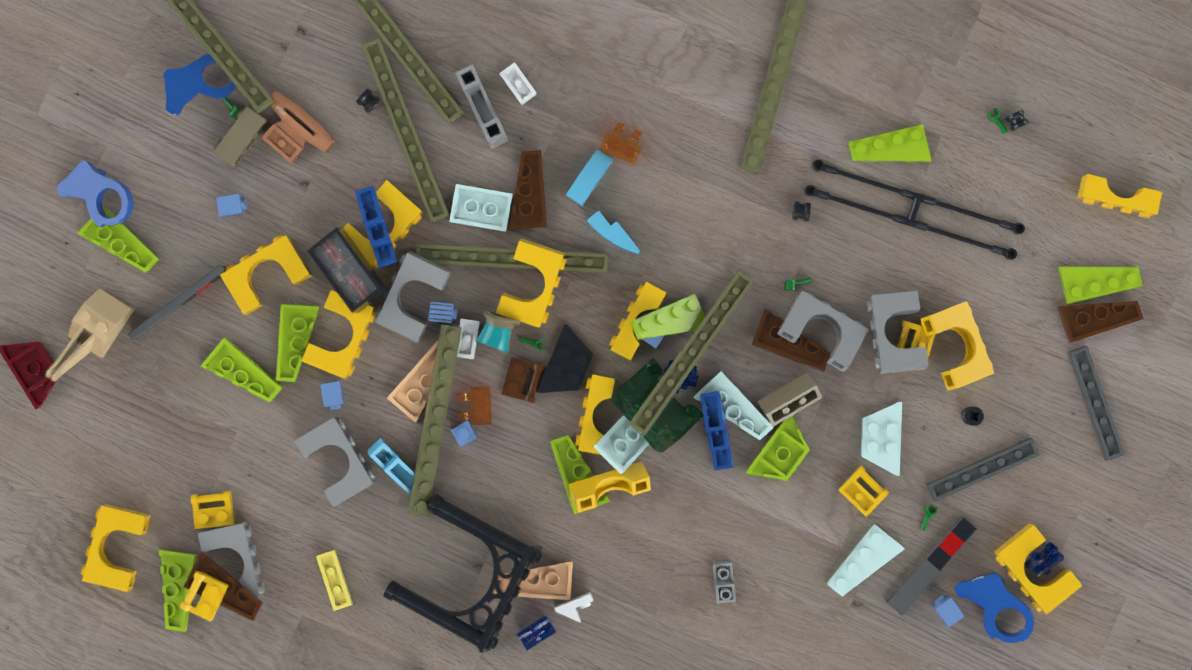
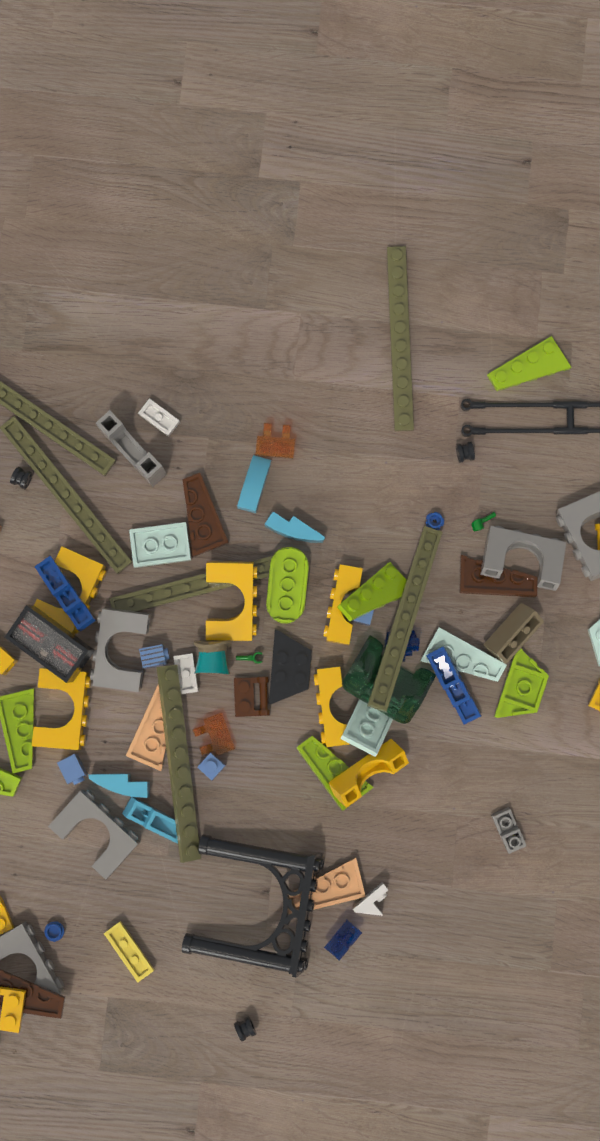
camera: 15 degrees left, 5 degrees down
(270, 539) = (54, 931): none -> blue plate
(375, 423) = (122, 785): none -> medium azure slope
(590, 284) = (287, 584): none -> lime tile
(750, 263) = (434, 516): none -> blue plate

